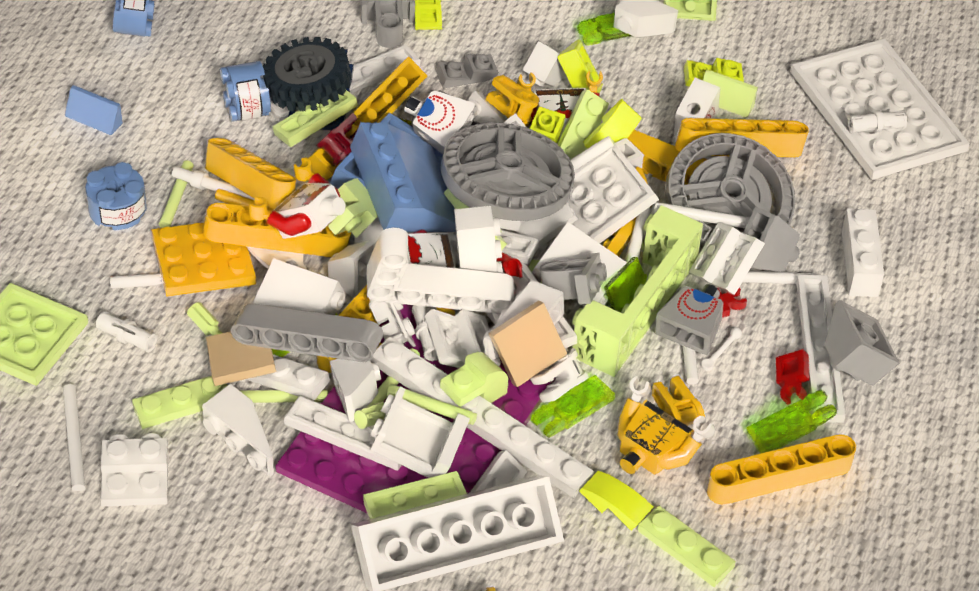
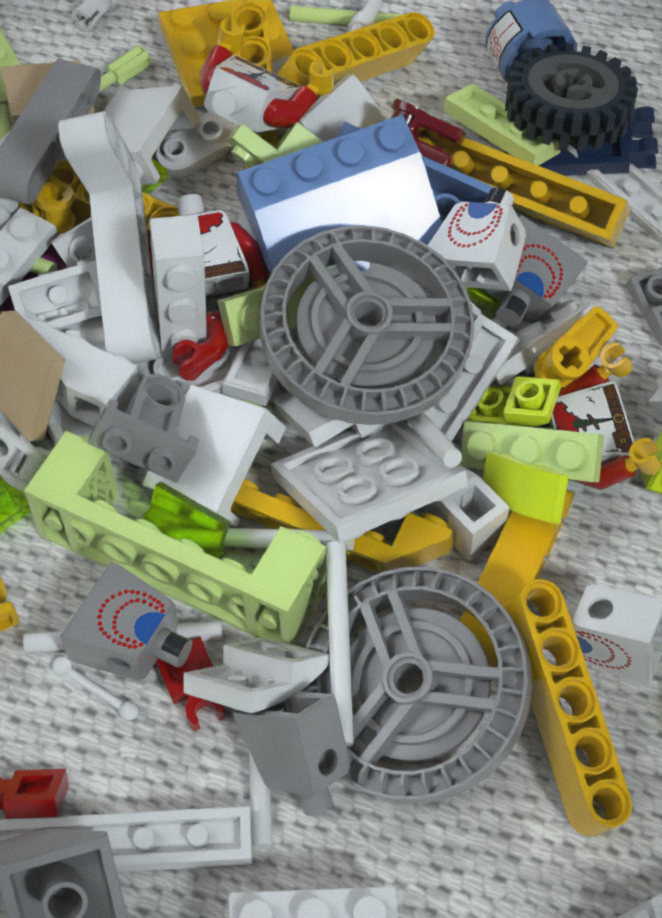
camera: 90 degrees right, 10 degrees up
(350, 267) = (210, 181): white slope -> none

